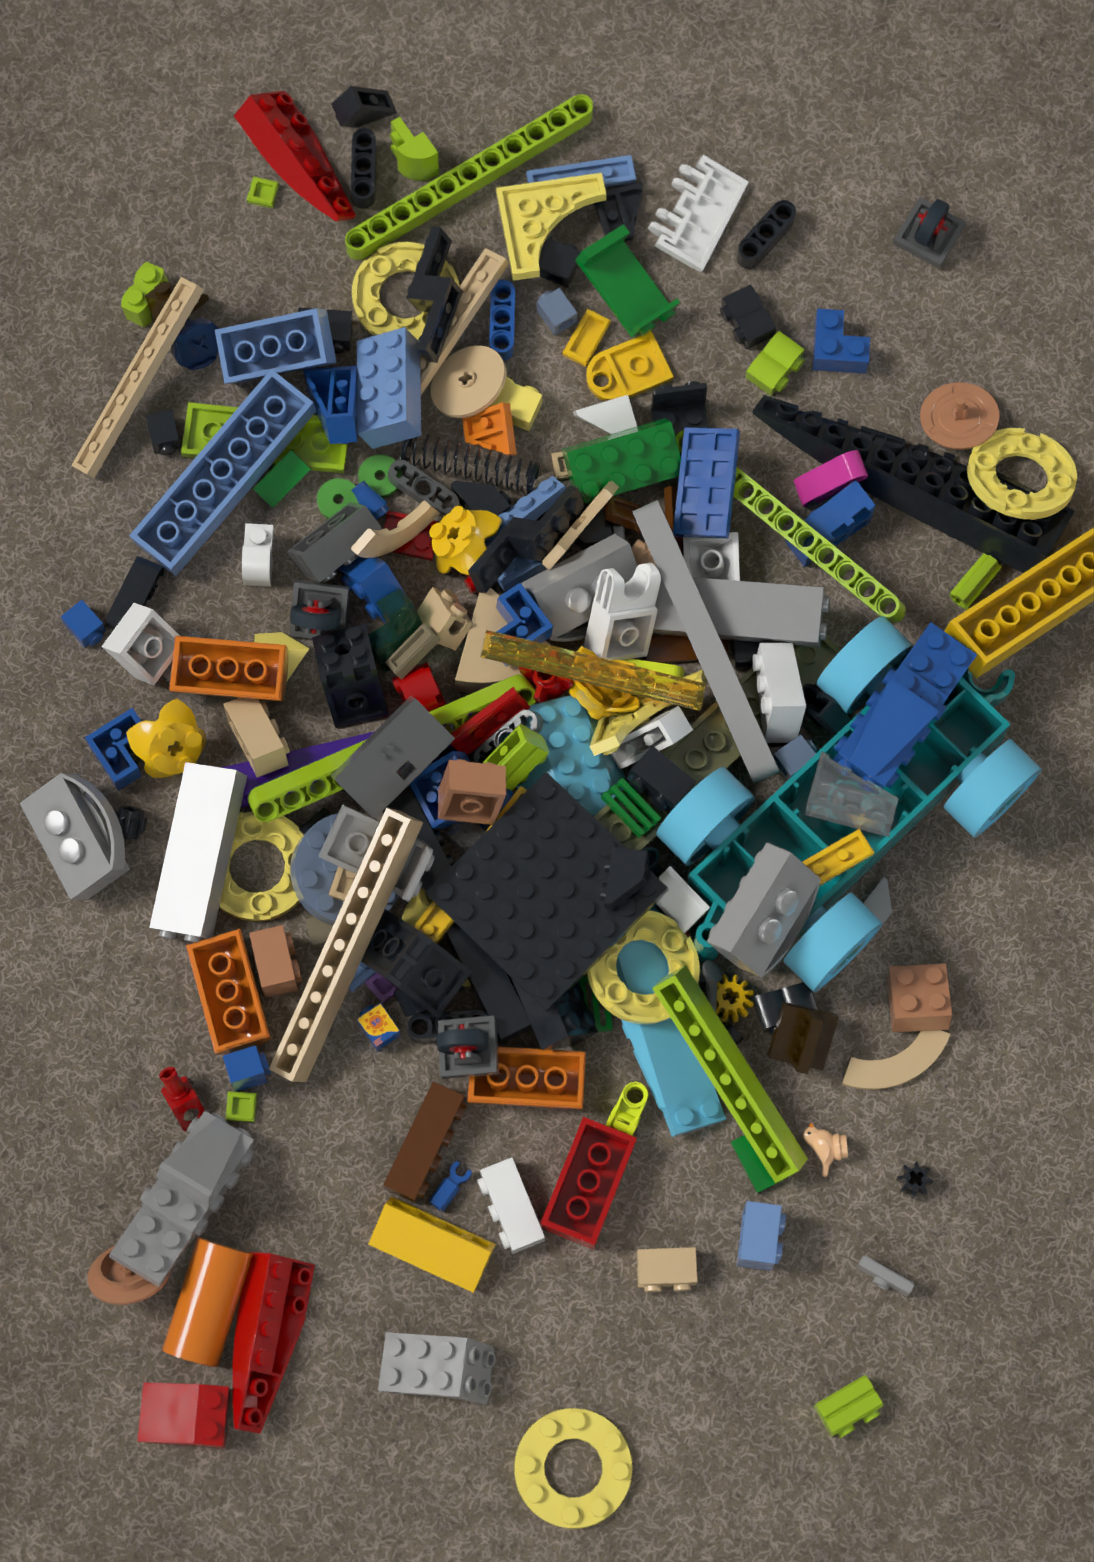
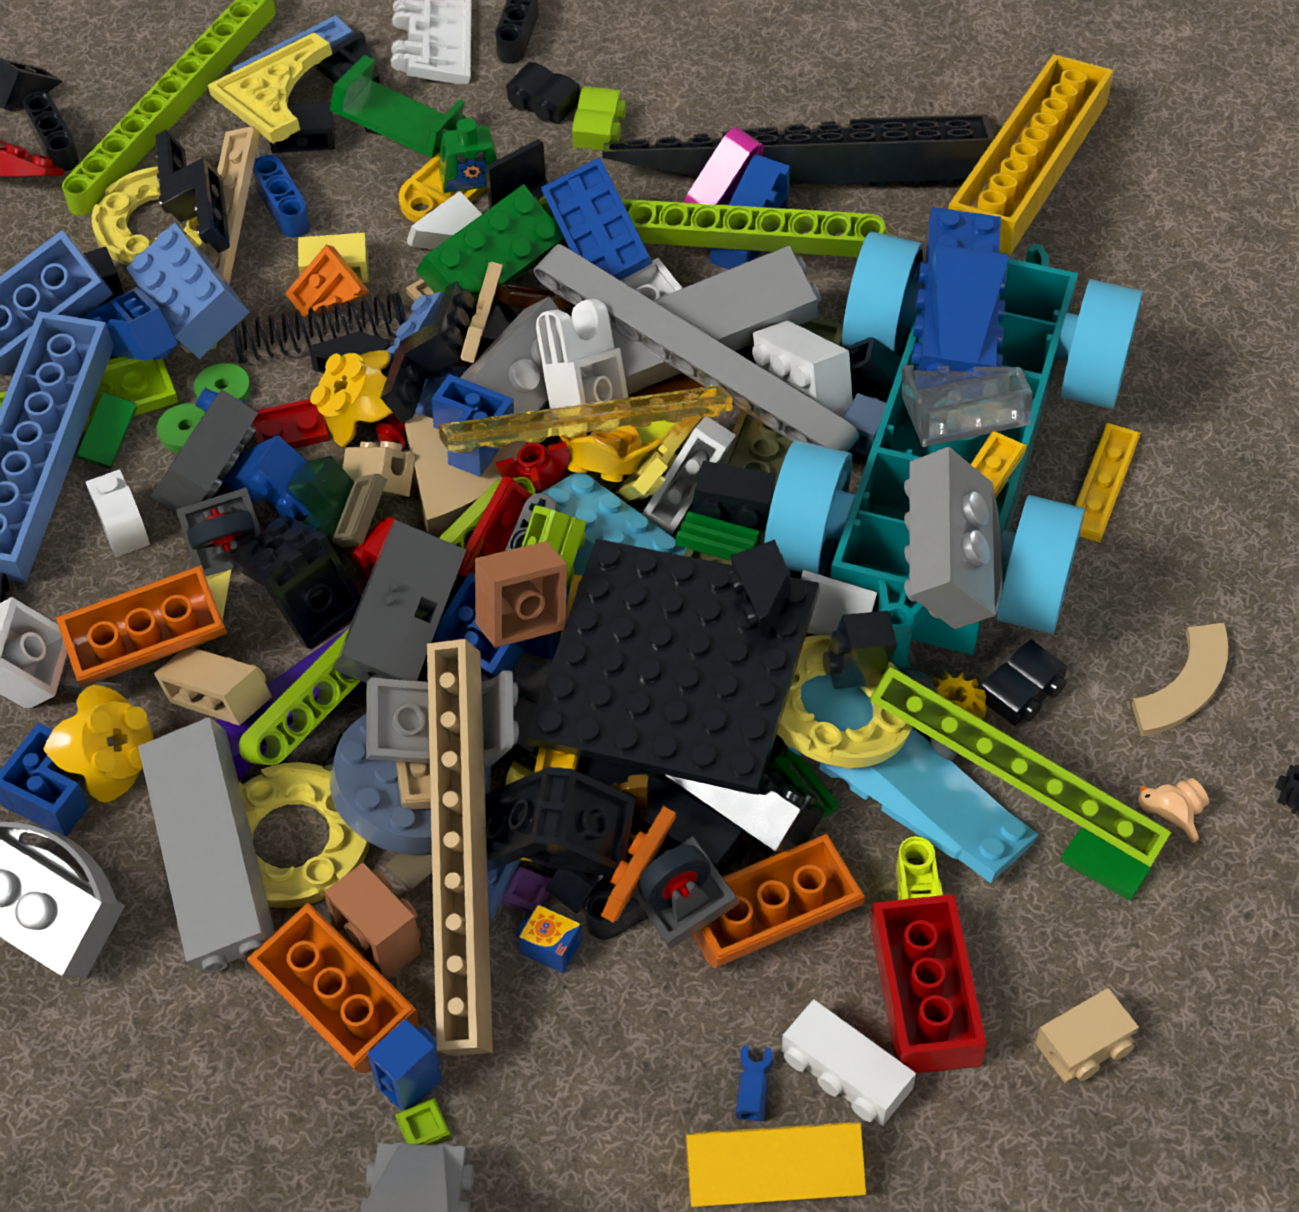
camera: 25 degrees left, 20 degrees down
(131, 821) = (104, 853): black gear -> none
(179, 1095) = (332, 1149): red bracket -> none
(381, 542) = (262, 423): tan tile -> none
(415, 155) = (98, 90): lime brick -> none
(421, 477) = (255, 379): dark grey beam -> none
(424, 1142) = (690, 1043): reddish brown brick -> none
(436, 1025) = (628, 874): none -> orange plate
(474, 963) = (637, 787): none -> pearl gold tile
(487, 380) = (274, 257): tan piece -> none
(556, 311) = (336, 165): sand blue brick -> none
(586, 337) = (382, 179): yellow tile -> none
(652, 365) = (465, 156): none -> green torso
(669, 946) = (860, 649): none -> black brick
(759, 1236) = (1175, 933): medium blue brick -> none
(802, 1037) = (1066, 696): dark brown bracket -> none
(834, 350) = (651, 81): blue brick -> none
(919, 998) = (1165, 598): nougat brick -> none
(945, 879) = (1105, 479): none -> yellow tile
(959, 415) = (816, 83): nougat piece -> none
(975, 581) = (934, 194): lime axle -> none
(1045, 451) = (955, 86): light yellow plate -> none

